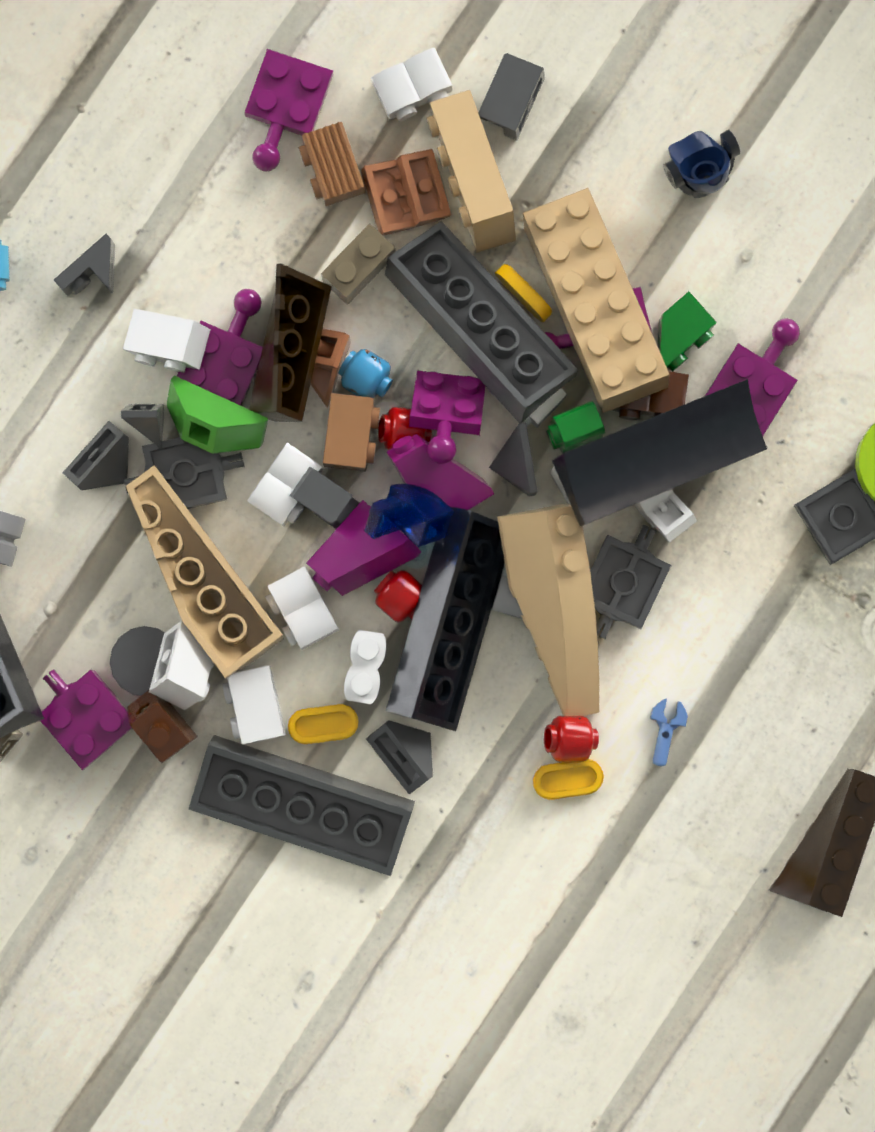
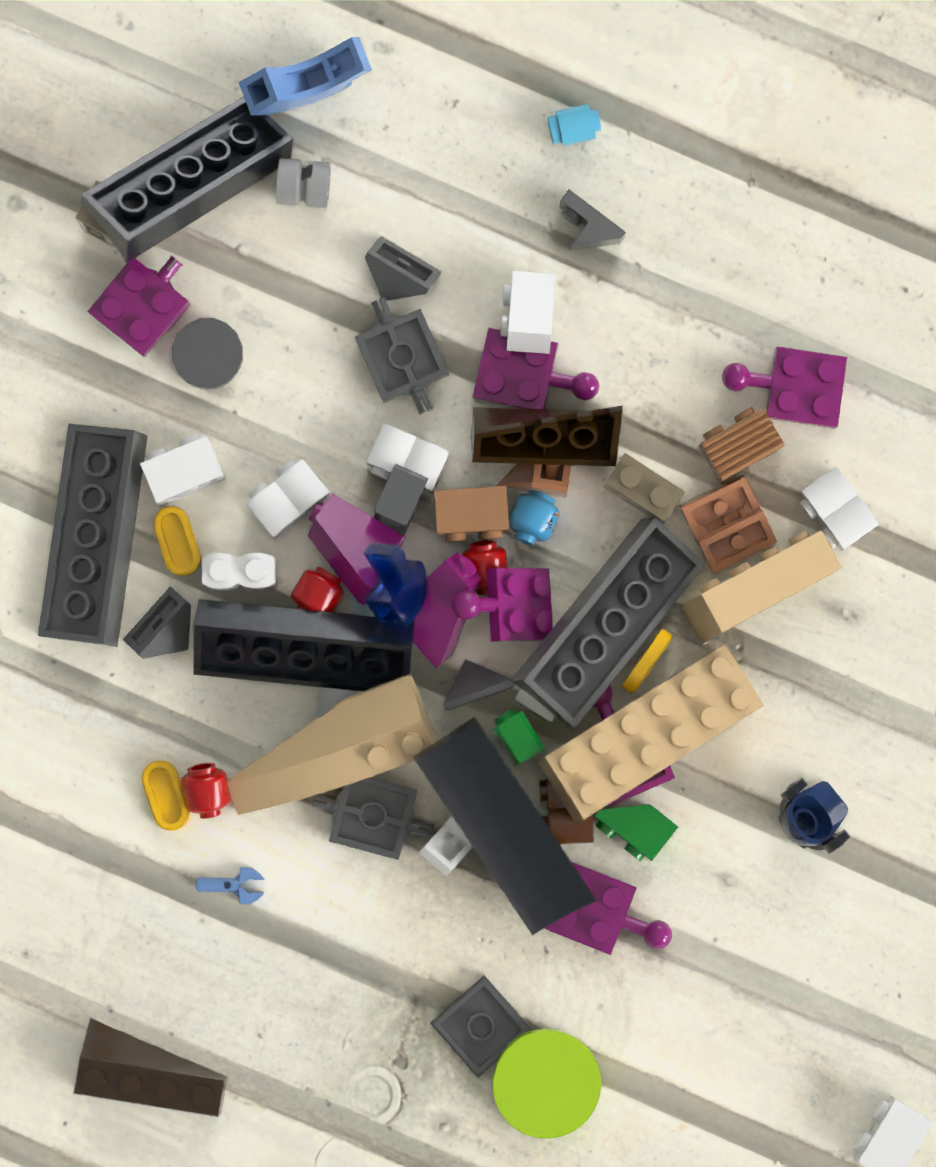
camera: 85 degrees right, 0 degrees up
(146, 419) = (446, 307): dark grey slope -> none
(159, 726) = (143, 380): reddish brown torso -> none
(181, 669) = (207, 391): white brick -> none
(201, 581) = (294, 392): tan wedge -> none
(213, 420) = (457, 372): bright green slope -> none
(512, 94) = (846, 611): dark grey panel -> none

